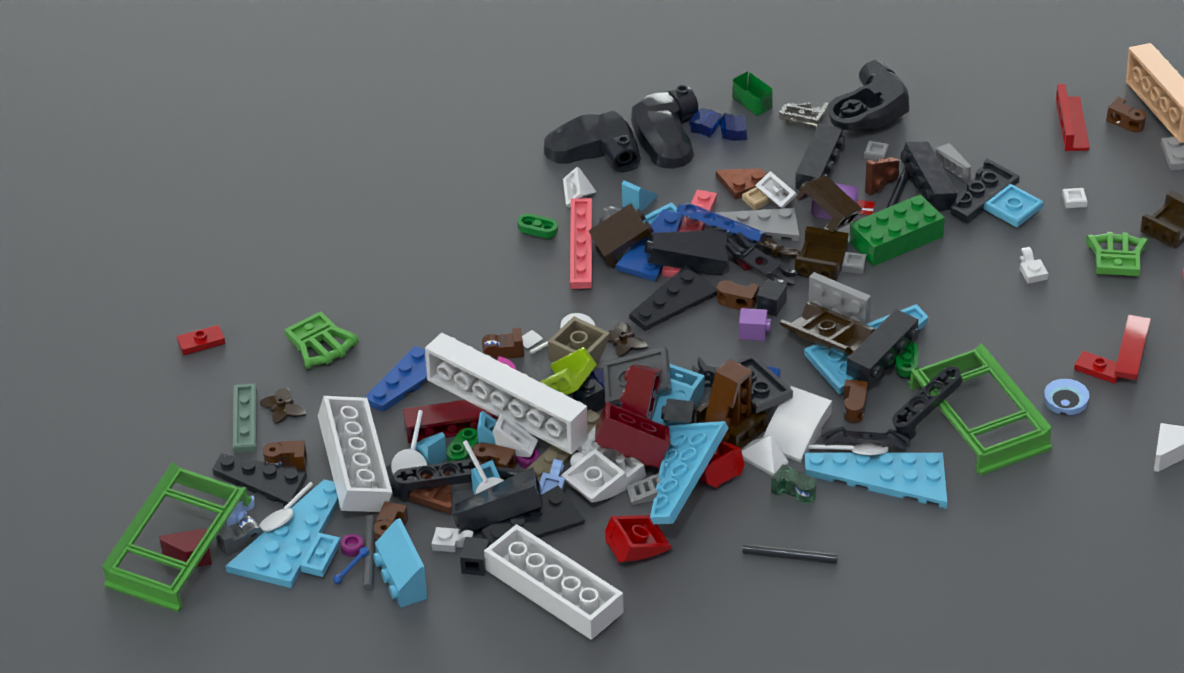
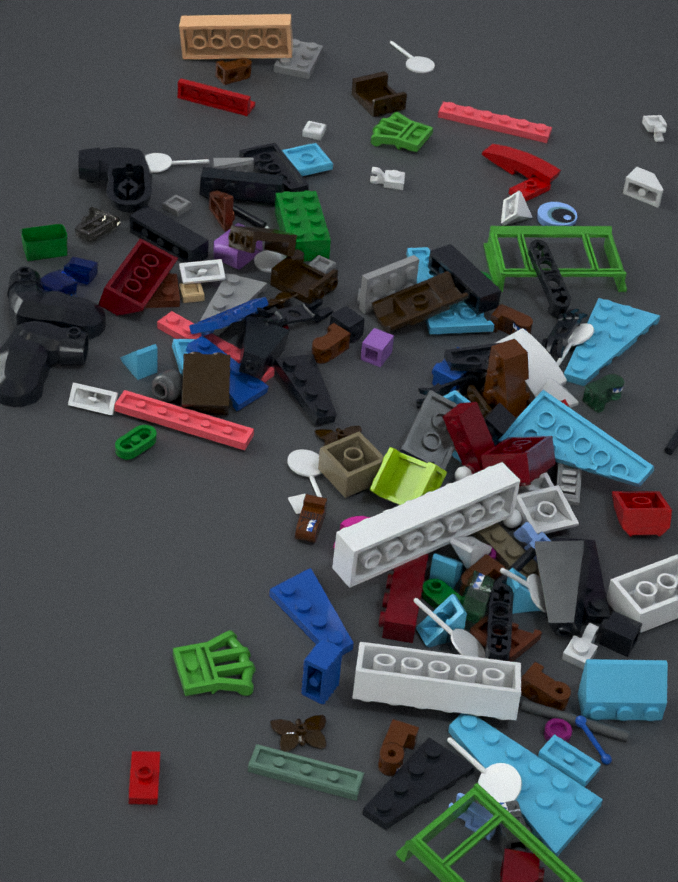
camera: 75 degrees left, 0 degrees up
(330, 382) = (321, 671): none -> blue brick
(456, 451) = (476, 596): none -> clear green leg
(736, 154) = (137, 279): none -> dark red slope
(935, 120) = (161, 162): none -> white piece
(1049, 367) = (515, 209): none -> white slope

